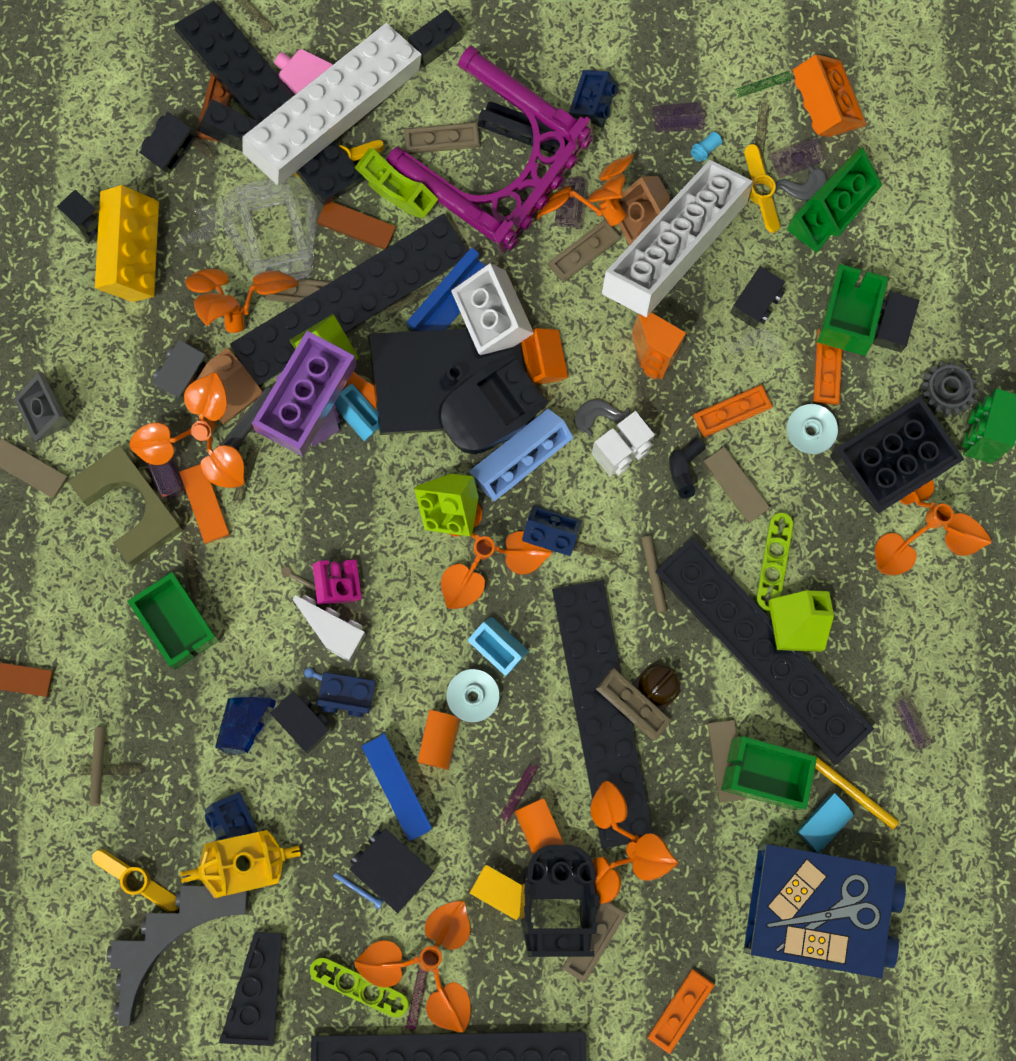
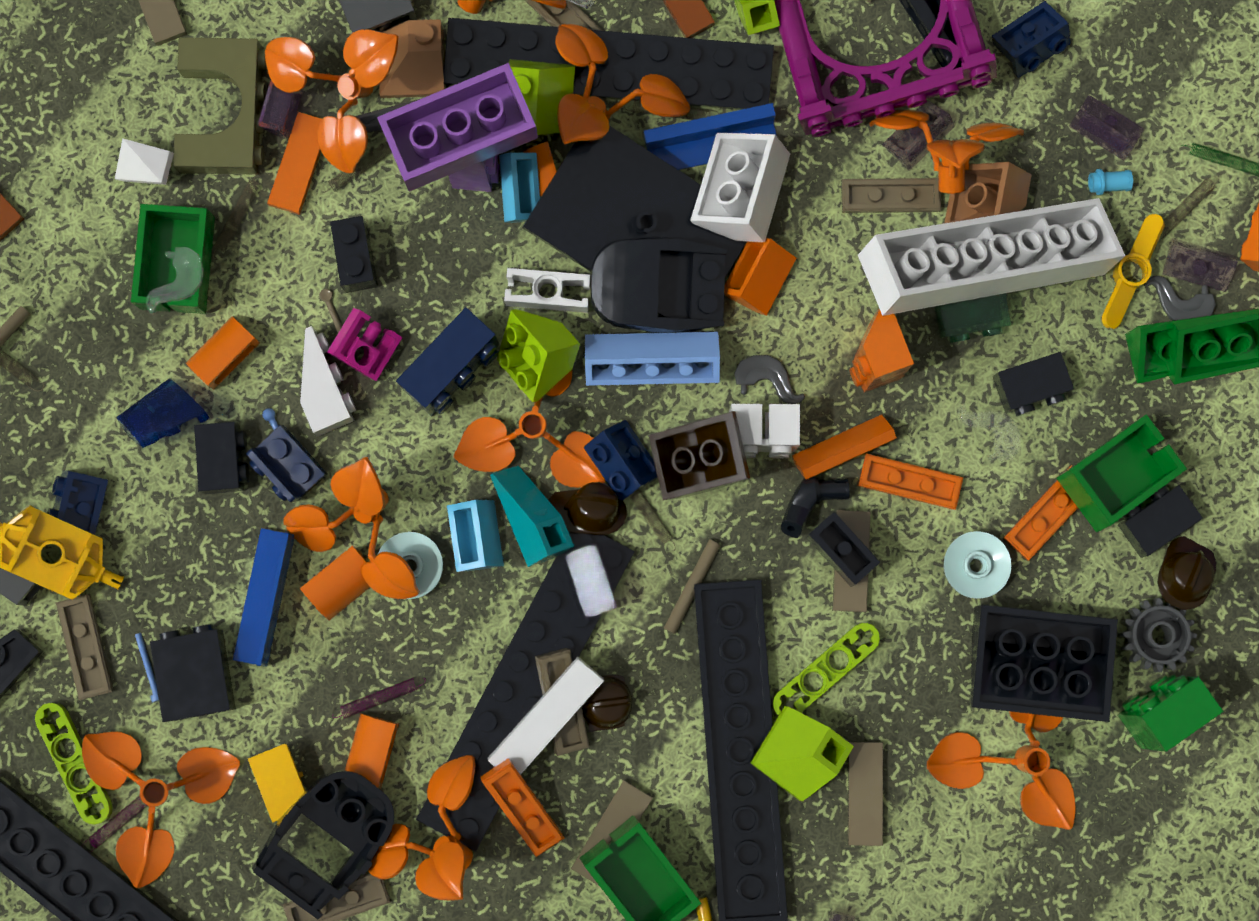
camera: 45 degrees right, 5 degrees up
(106, 577) = (143, 163): none -> white slope
(197, 628) = (187, 281): none -> clear piece
(249, 656) = (222, 353): none -> orange brick
(285, 531) = (353, 254): none -> black brick
(307, 909) = (84, 647): none -> dark tan tile
(365, 338) = (586, 116): none -> orange plant
(400, 551) = (449, 363): none -> dark blue brick
(415, 668) = (362, 492): none -> orange plant
(423, 452) = (541, 278): none -> white piece
(527, 607) = (531, 516): none -> teal slope
(554, 577) = (590, 509): none -> dark brown piece
(593, 616) = (591, 581): none -> slope
(600, 488) = (699, 456): none -> dark brown slope
(633, 721) = (548, 716): none -> white tile
(661, 787) = (522, 807): none -> orange tile
(677, 420) = (844, 447): none -> orange tile
(687, 289) = (973, 315): none -> clear green brick
(728, 479) = (842, 549): none -> black brick
(857, 617) = (865, 794): none -> dark tan tile
(936, 340) = (1186, 574): none -> dark brown piece

